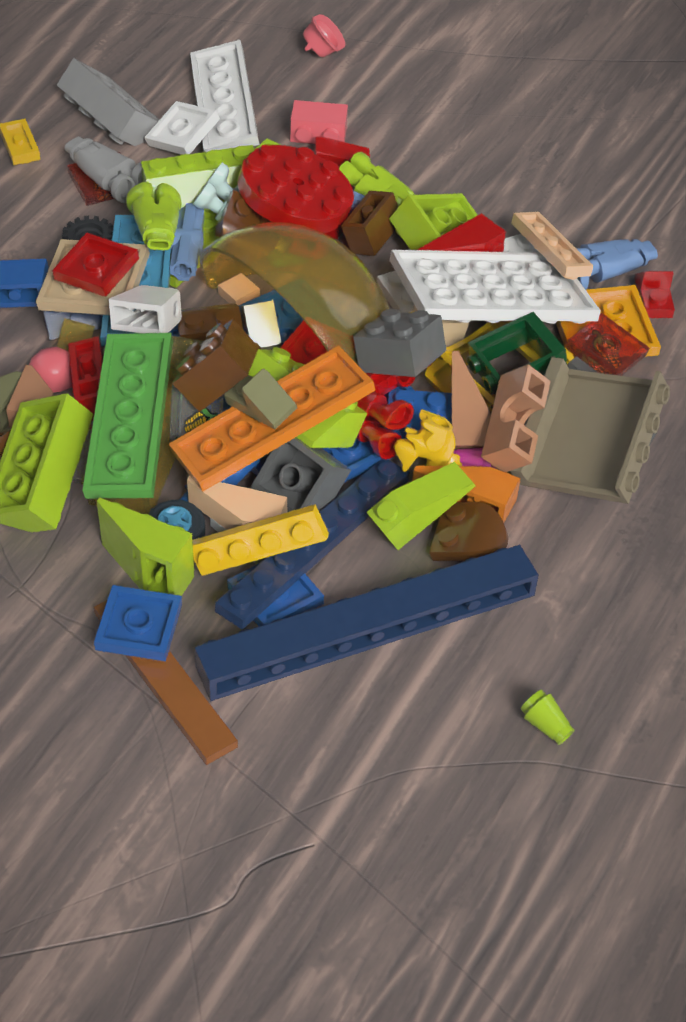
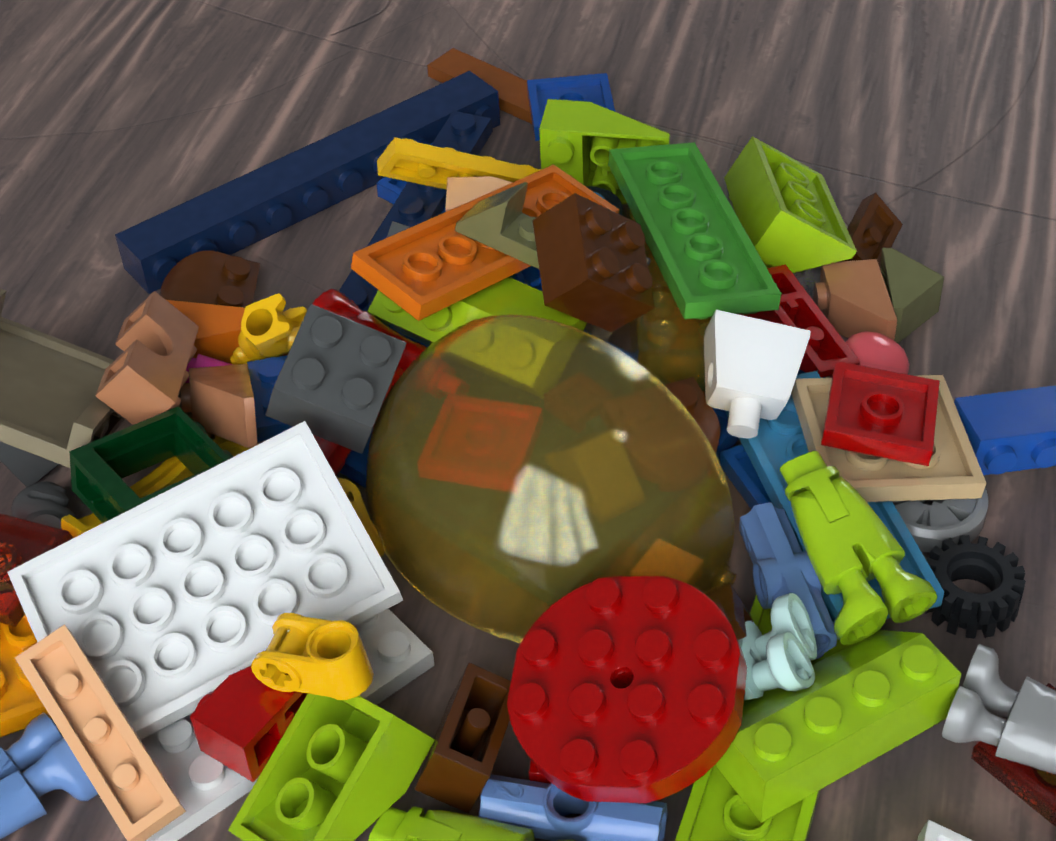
camera: 170 degrees right, 5 degrees down
(419, 503) = (292, 264): lime slope -> none
(439, 220) = (317, 656): none -> yellow piece
(546, 715) = (106, 145): lime cone -> none

